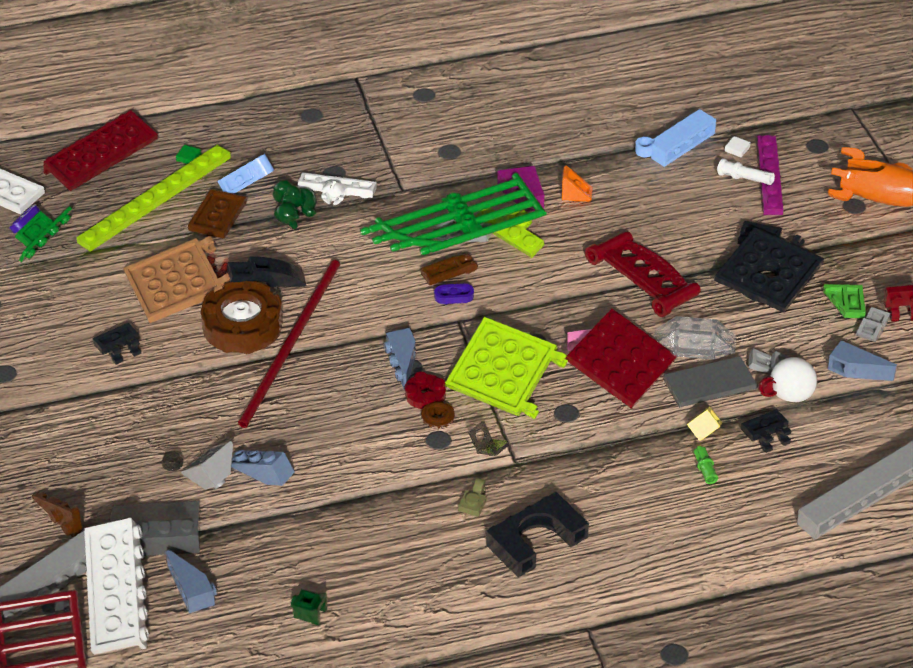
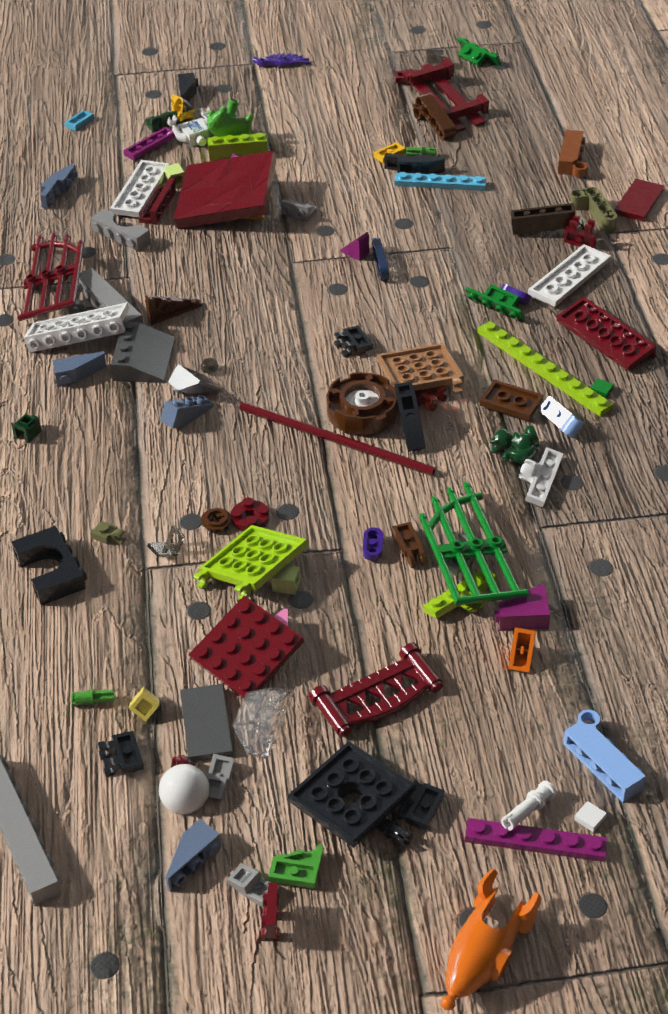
camera: 100 degrees right, 0 degrees up
(402, 353) = (294, 501): sand blue slope -> none

